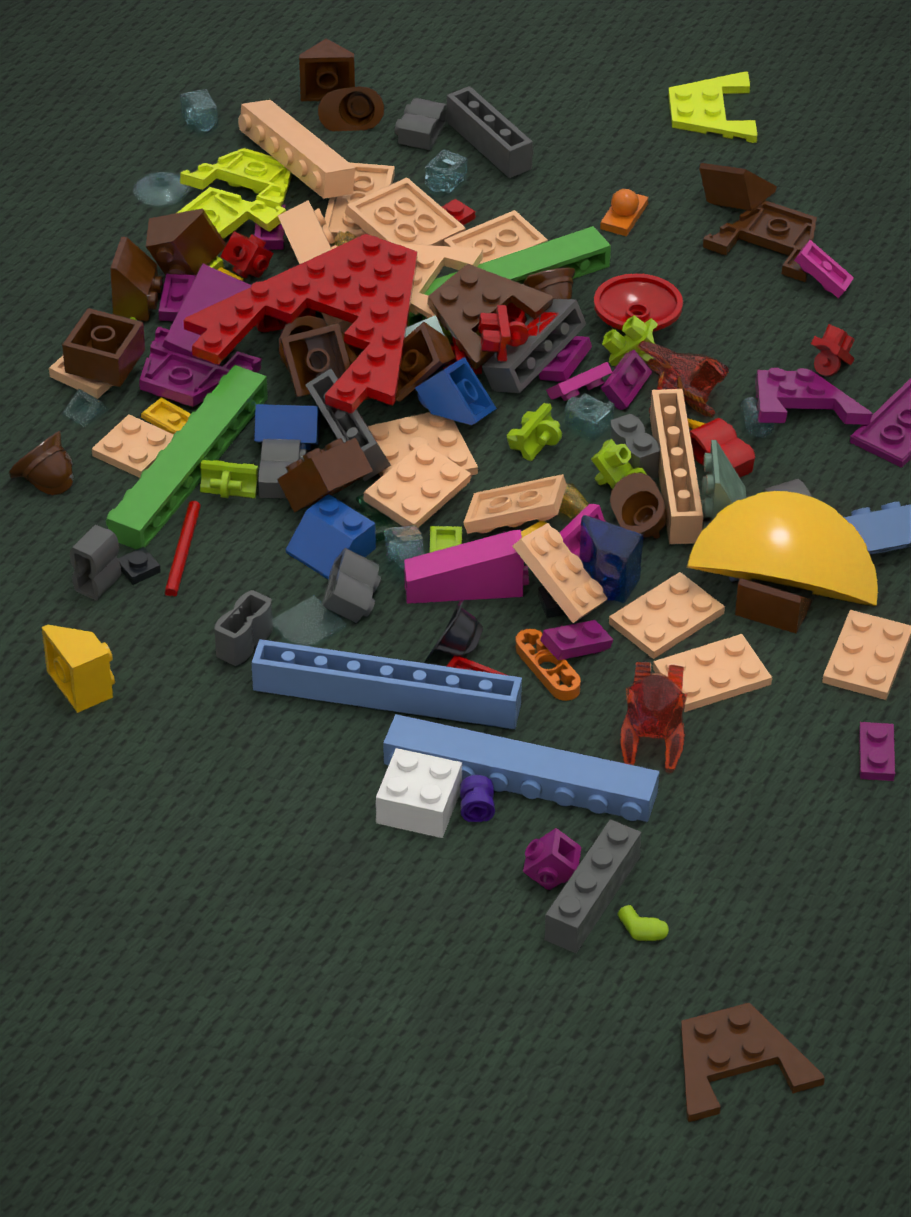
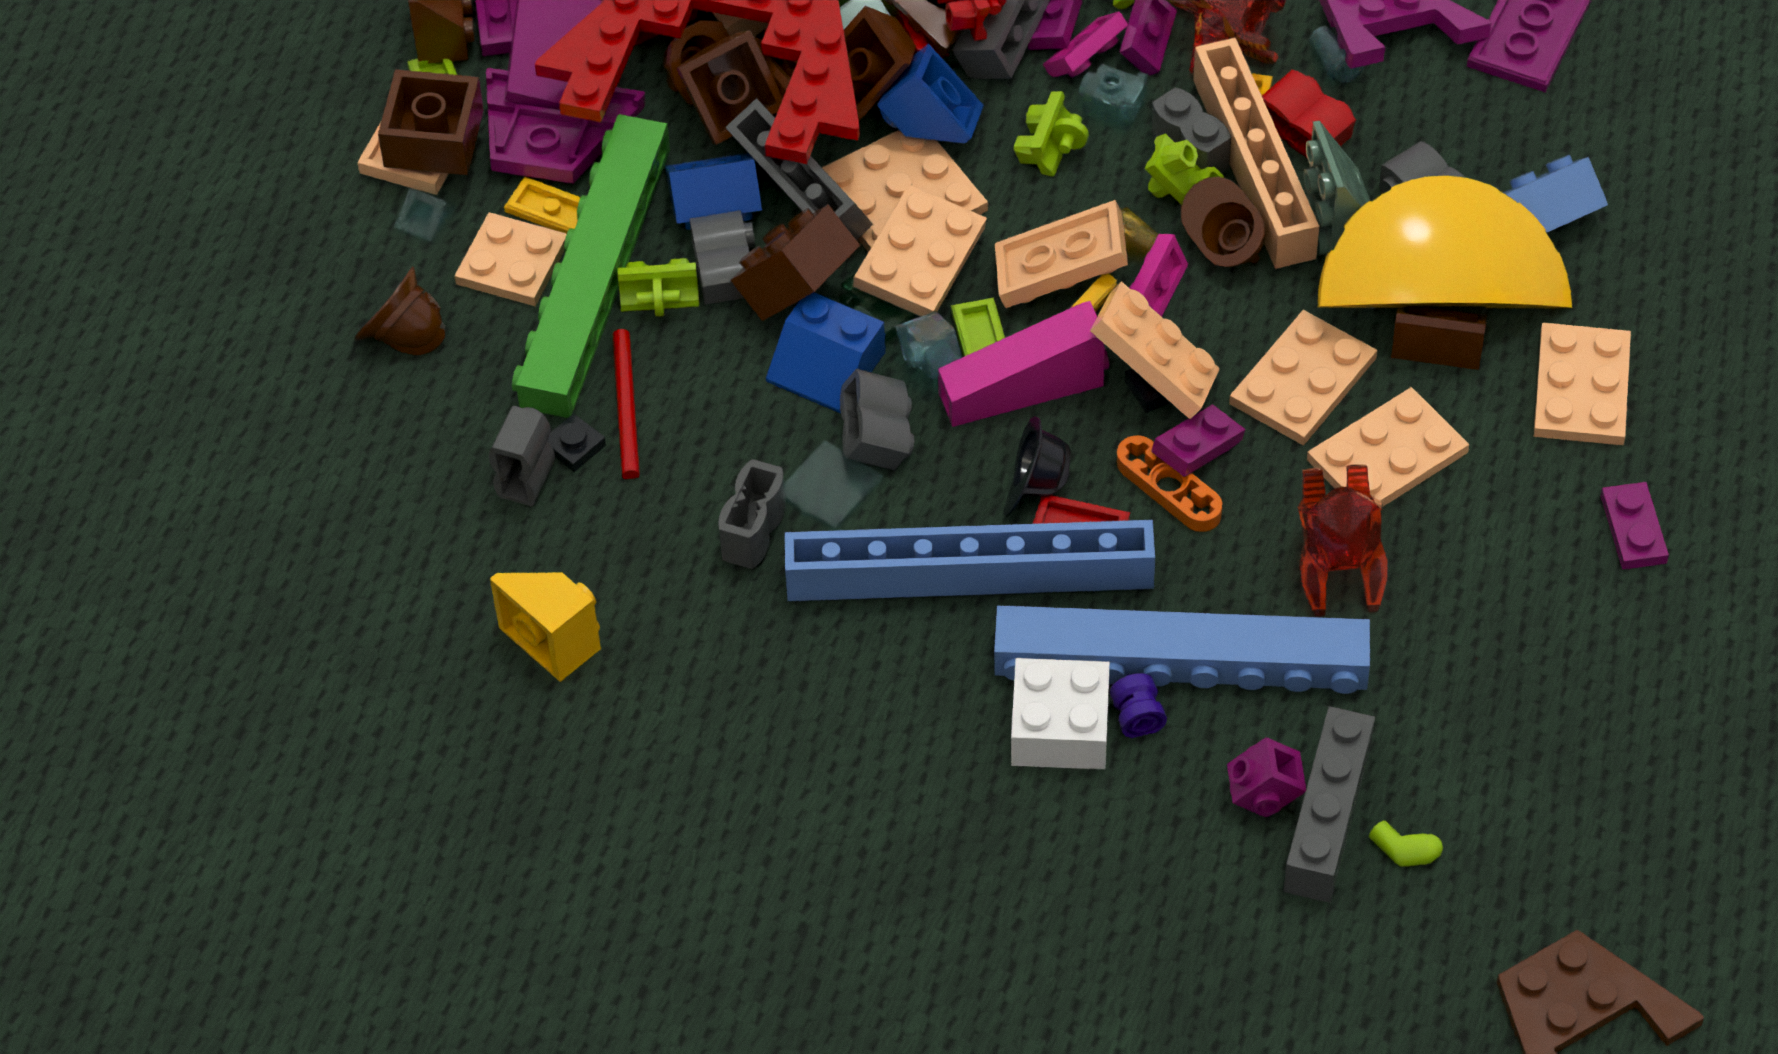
camera: 10 degrees left, 10 degrees up
(611, 556) = (1211, 310): clear blue slope -> none

